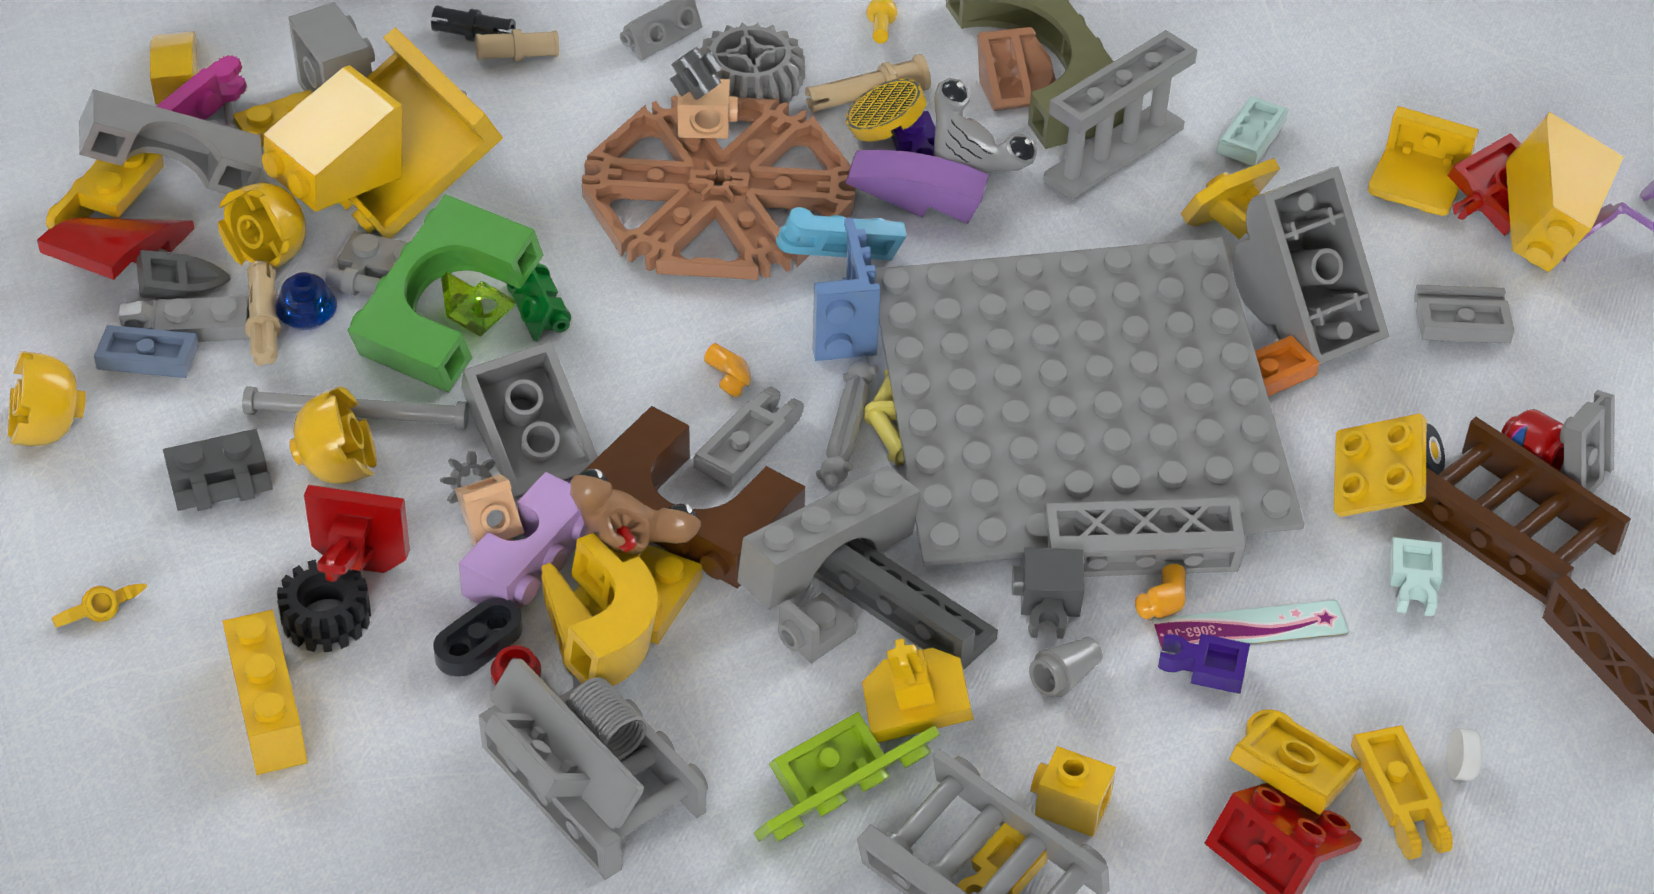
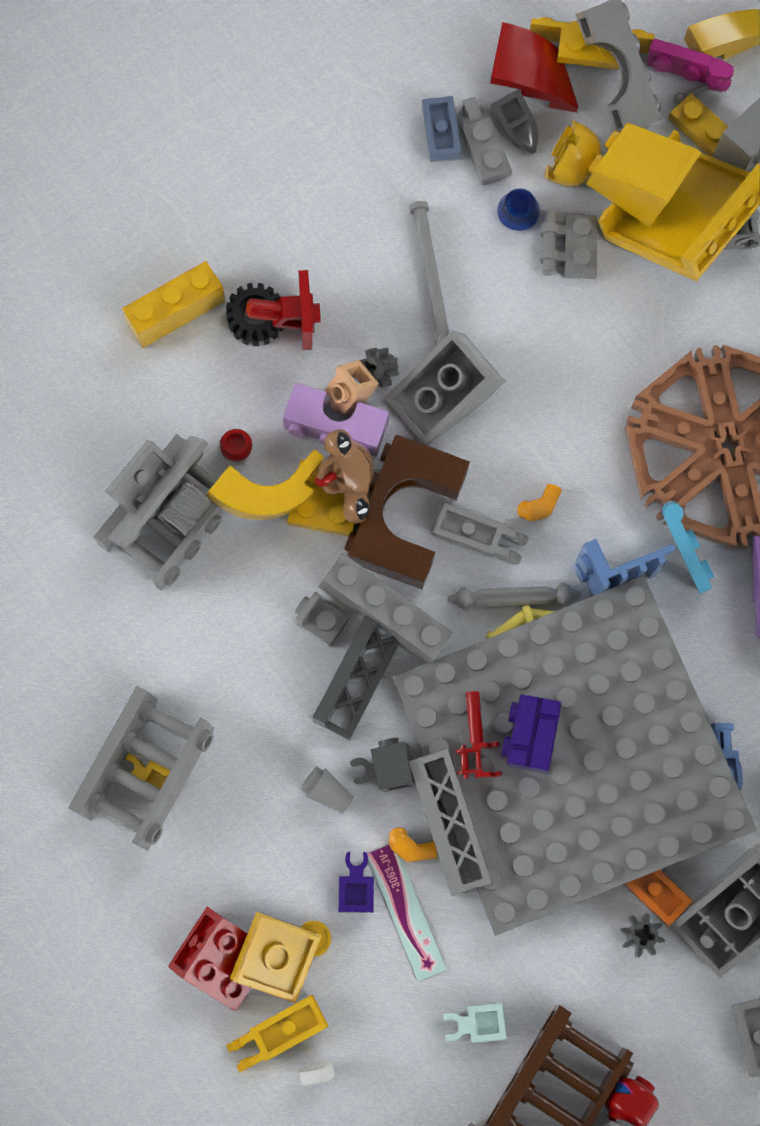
camera: 75 degrees right, 30 degrees up
(43, 400) = (370, 86): yellow cylinder -> none
(98, 604) = (225, 186): yellow piece -> none
(217, 470) = (360, 205): dark grey plate -> none
(262, 324) = (498, 186): tan axle -> none
(332, 440) = (388, 273): yellow cylinder -> none
(450, 240) = (506, 269): bright green arch -> none
(465, 306) = (545, 311): clear neon green bracket -> none
(471, 638) = (255, 415): black plate -> none
(539, 304) = (559, 361): green hinge -> none
(561, 604) = (280, 463): yellow slope -> none
(831, 764) = (200, 659): lime bracket -> none
(915, 692) = (274, 697): yellow piece -> none
(1040, 473) = (476, 739): none -> red piece
(1052, 404) = (533, 733): none -> dark purple brick
(1073, 790) = (220, 813): yellow brick -> none
(1325, 391) = (634, 941): none -> dark grey gear
(1385, 464) = (573, 986): yellow plate -> none

